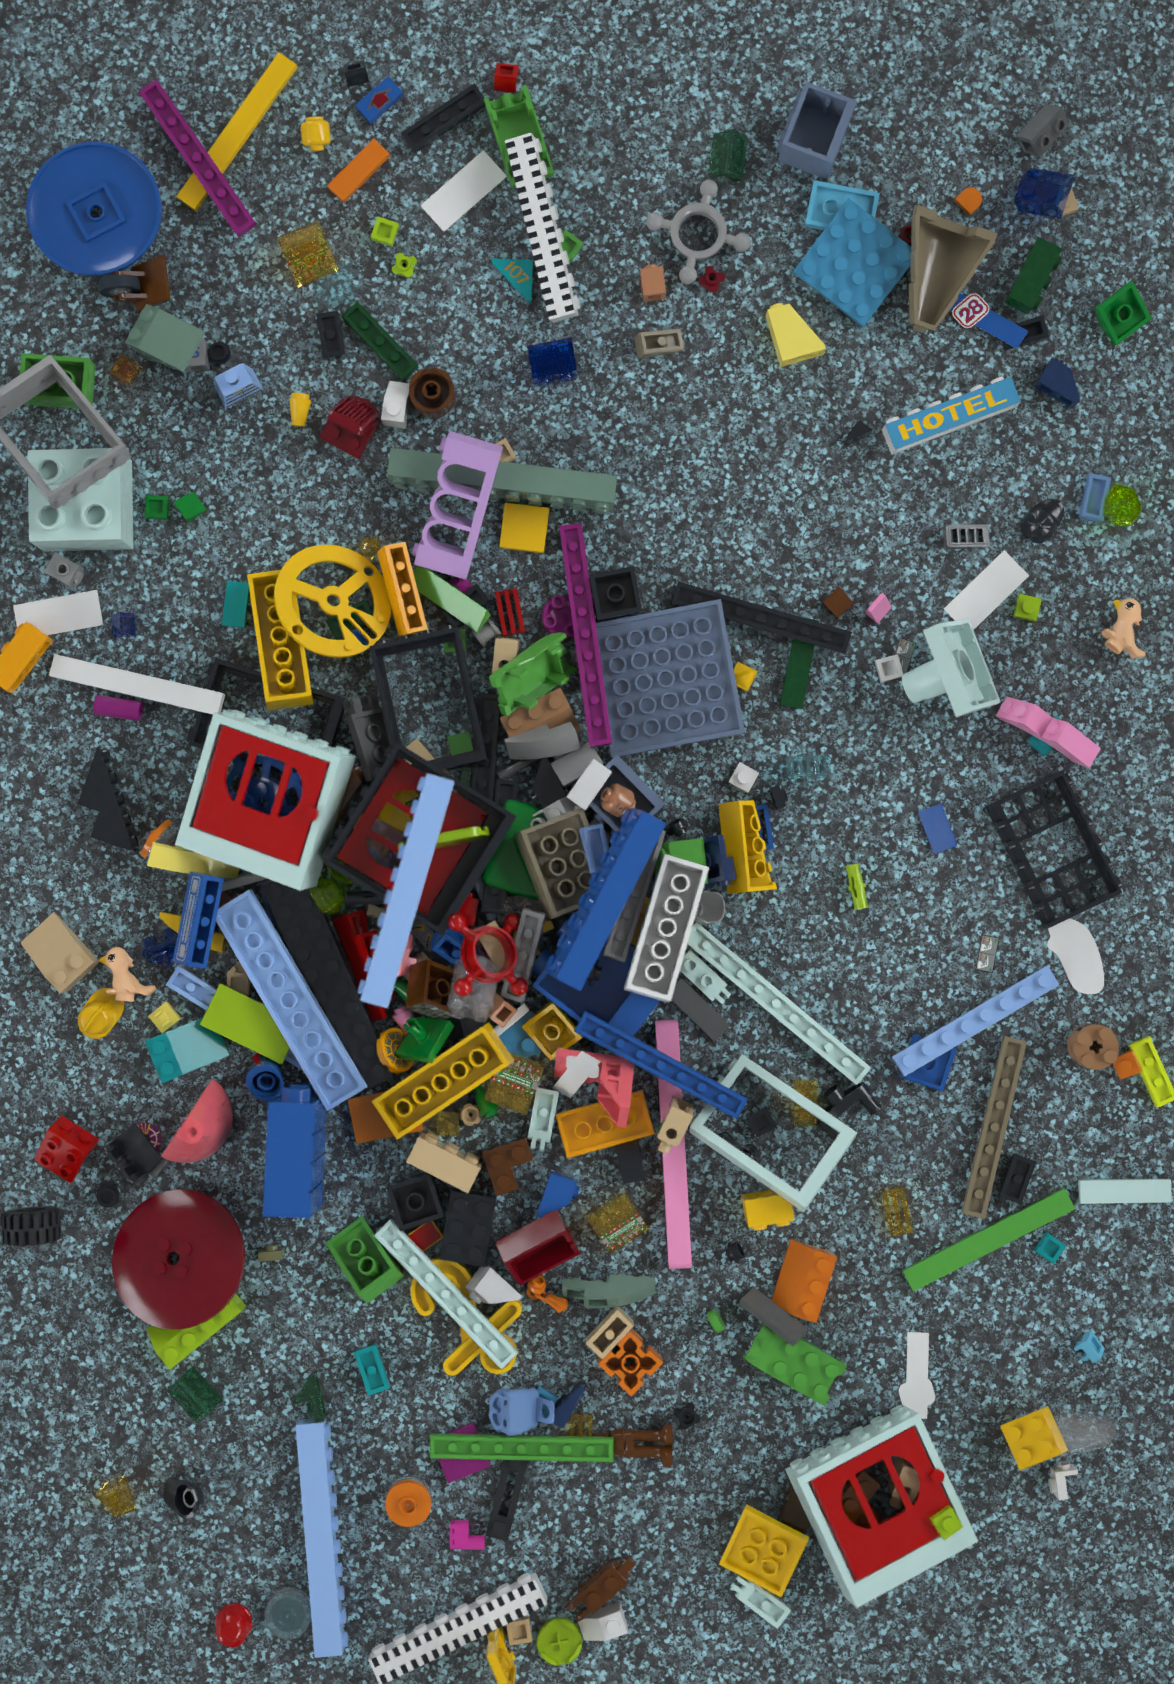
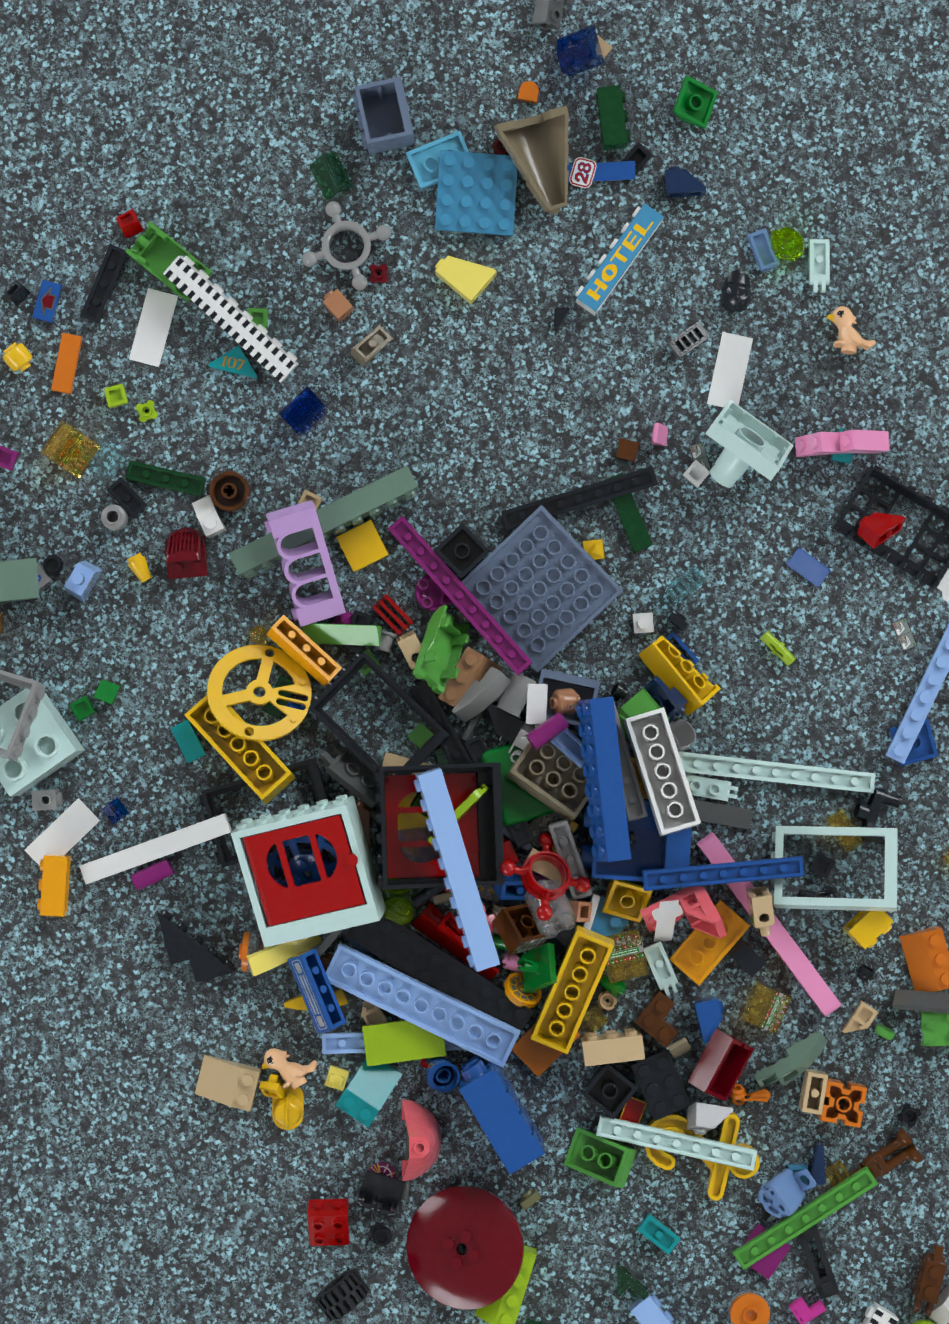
camera: 30 degrees left, 0 degrees up
(97, 985) = (272, 1087): none -> yellow tile
(163, 951) = (303, 1031): clear blue hips -> none
(306, 345) = (114, 517): none -> light grey head
(508, 1205) = (679, 1047): none -> dark tan slope
(582, 816) = (547, 731): none -> magenta piece
(701, 1293) = (860, 1018): none -> tan tile
(1027, 607) = (767, 363): lime plate -> none
(1031, 835) = (879, 527): none -> red slope
(1140, 545) = (819, 264): none -> light aqua hinge

